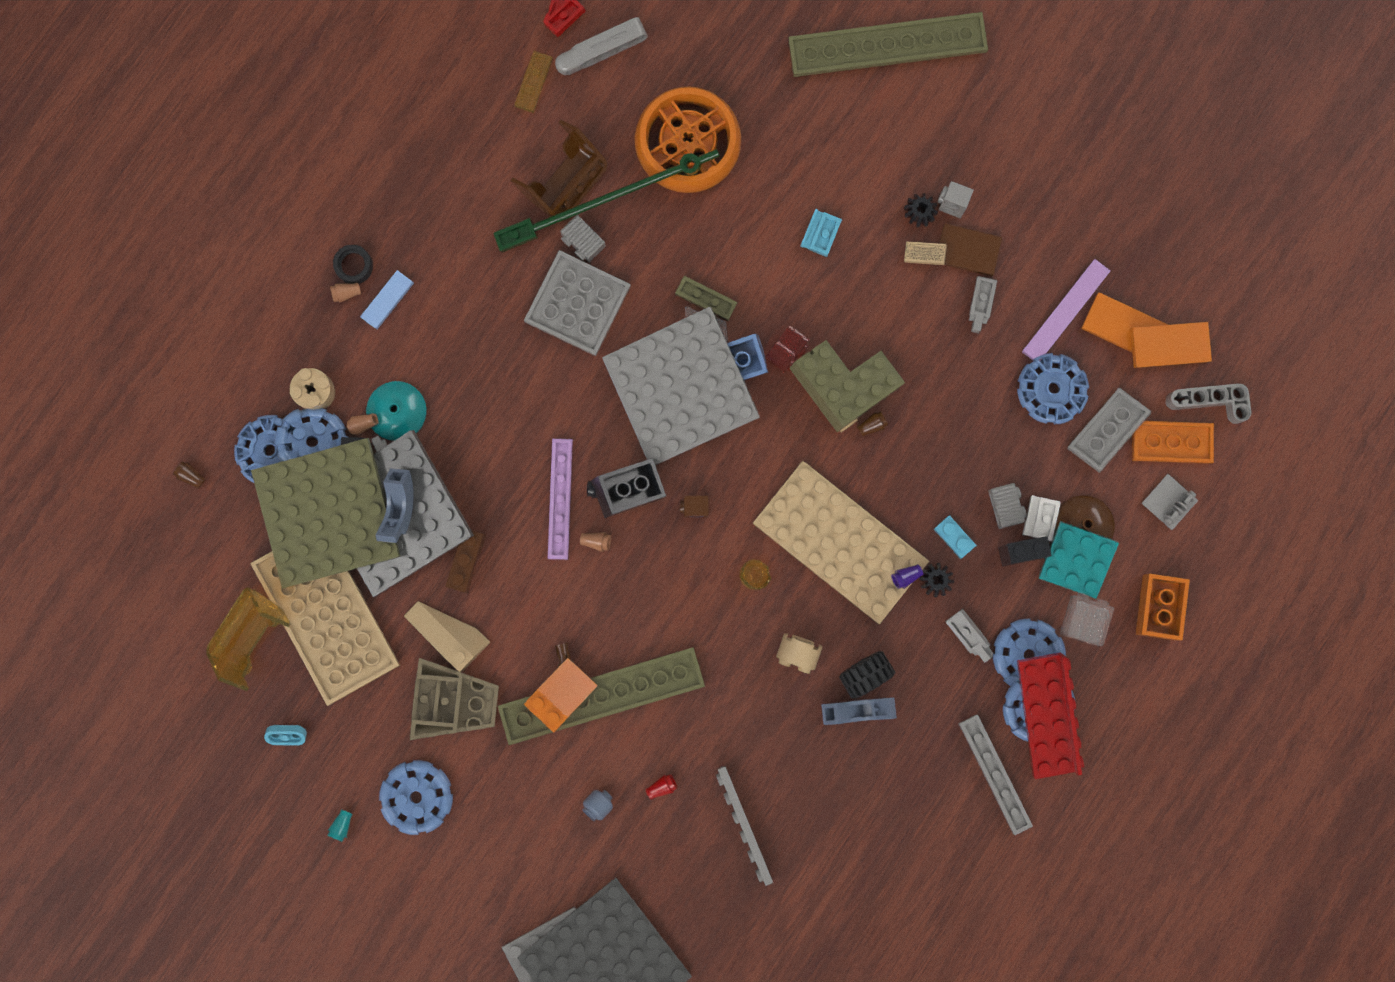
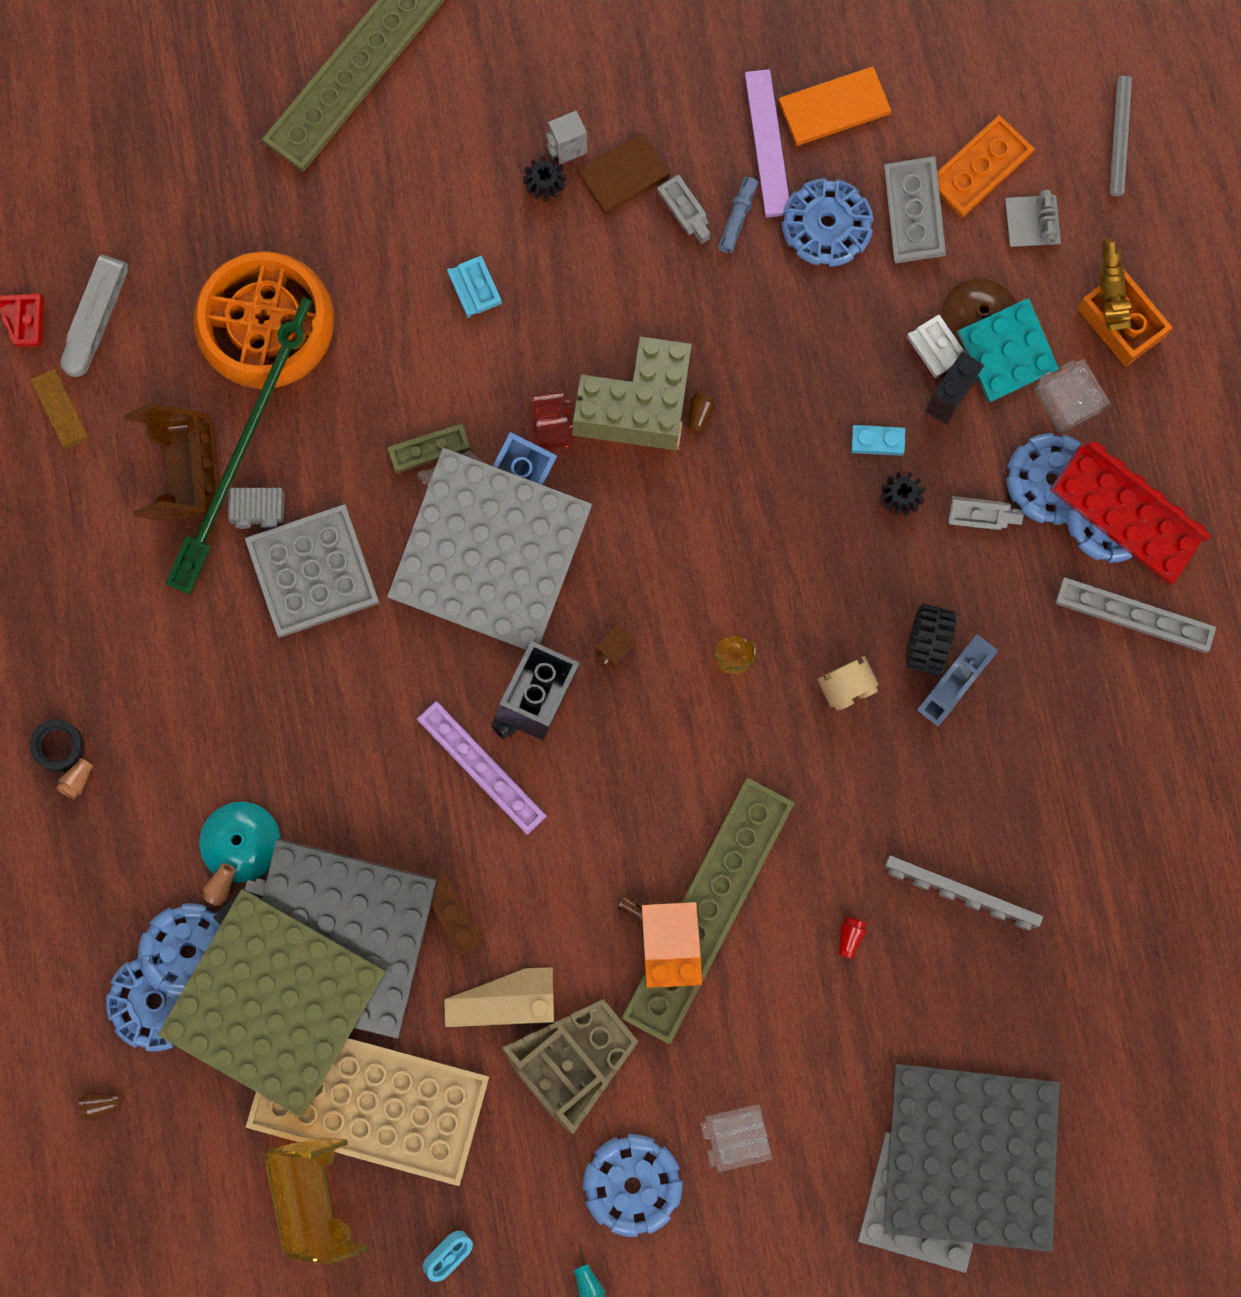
camera: 45 degrees left, 5 degrees down
(312, 378) = (125, 893): tan brick -> none
(387, 300) = (124, 747): light blue tile -> none
(399, 505) = (337, 921): sand blue arch -> none
(492, 829) = (736, 1138): none -> clear brick
(598, 541) = (556, 771): nougat cone -> none
(598, 805) = (810, 1014): sand blue head -> none
(838, 541) = (781, 547): tan plate -> none
(906, 576) = (872, 517): dark purple cone -> none
(925, 253) = (588, 213): tan tile -> none
(1007, 335) = (741, 205): none -> sand blue pin
(1007, 505) = (895, 365): light grey brick -> none
(1170, 344) = (890, 82): orange tile -> none
(1171, 585) = (1113, 287): none -> pearl gold piece
(1207, 400) = (972, 99): light grey beam -> none
(1272, 502) = (1120, 136): none -> light grey axle

